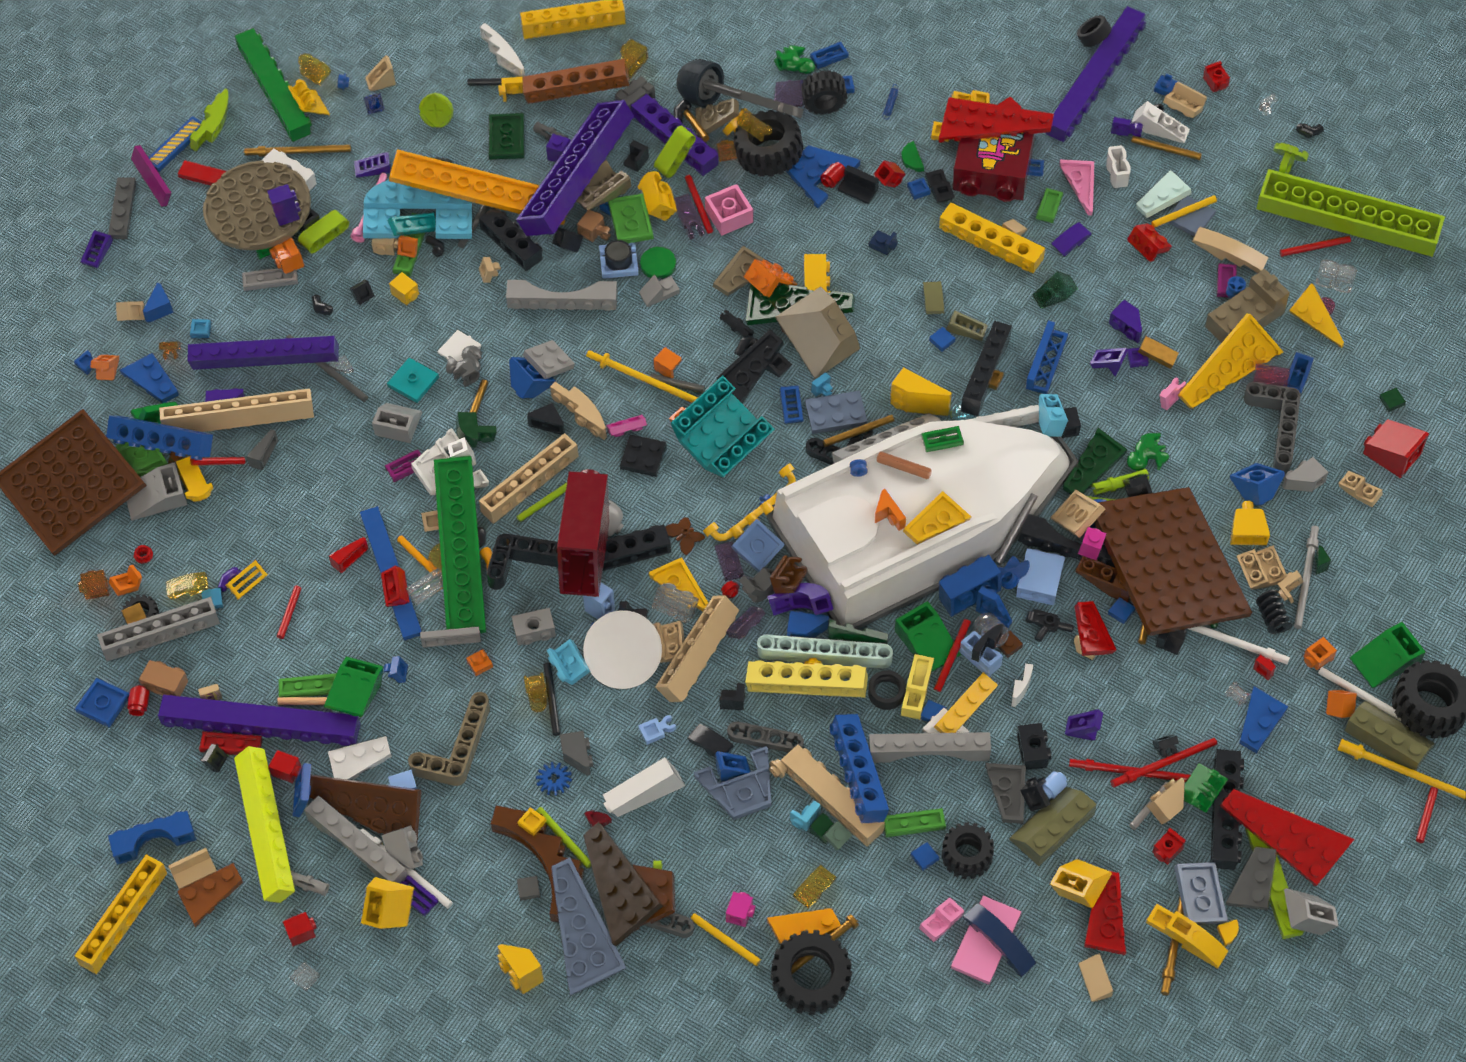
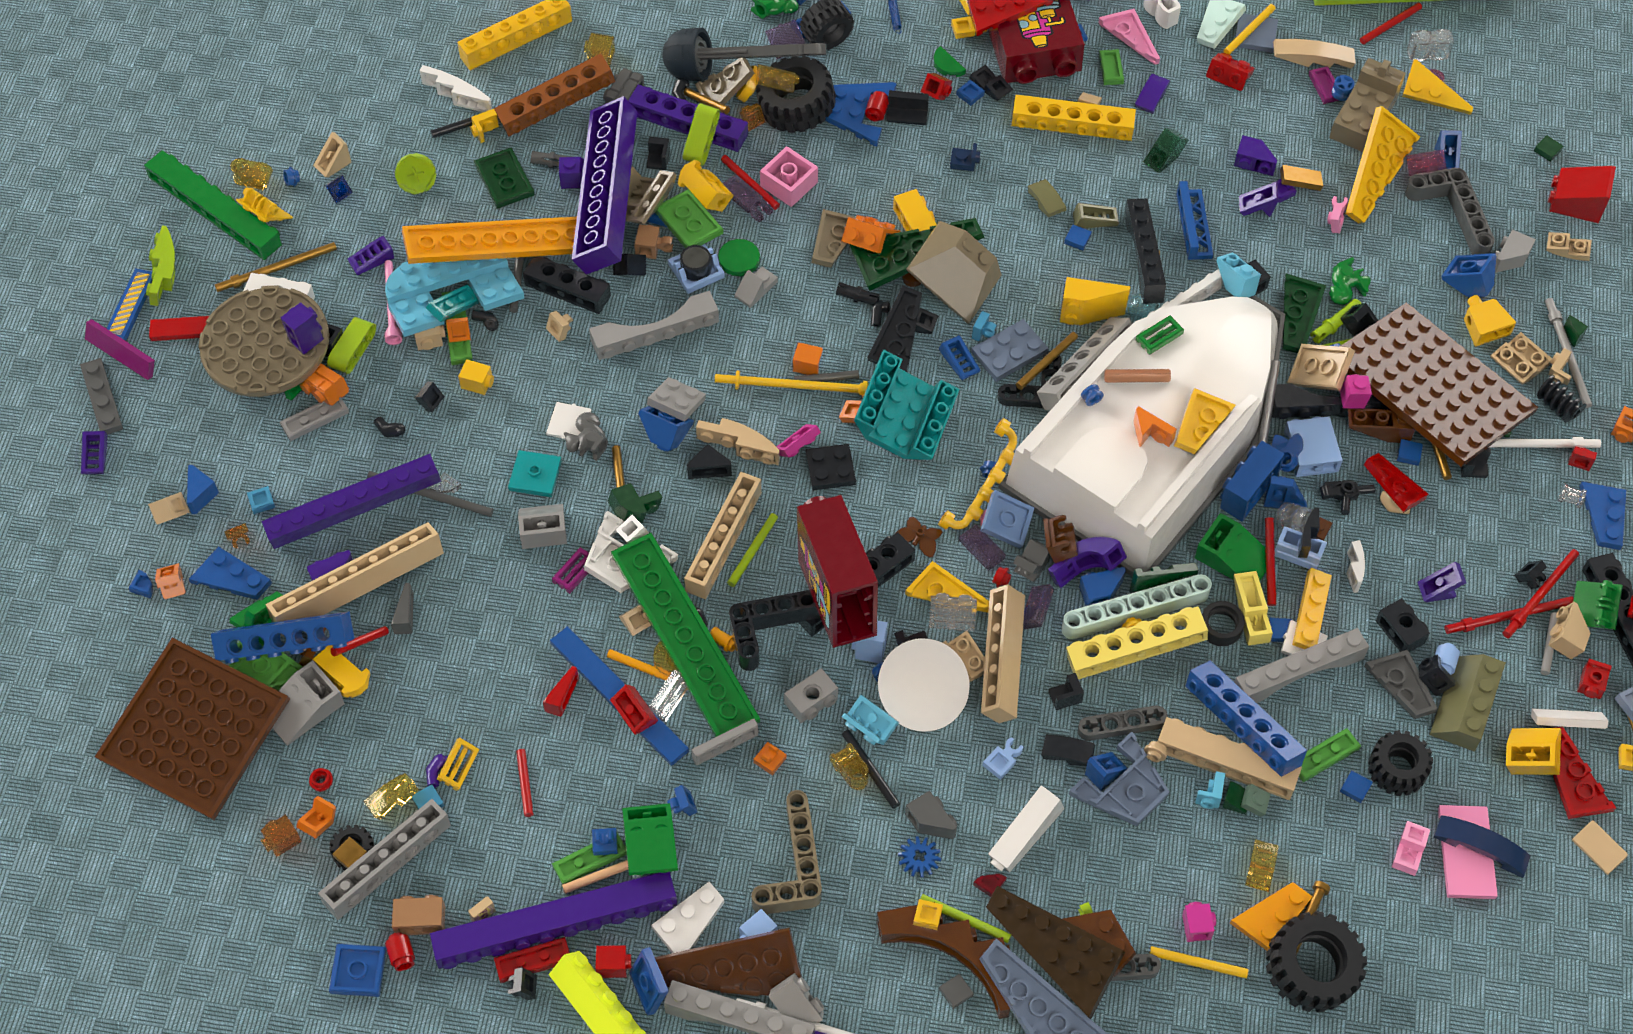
camera: 25 degrees left, 0 degrees up
(323, 677) = (604, 841): none -> blue tile
(1129, 869) = (1569, 718): none -> white tile

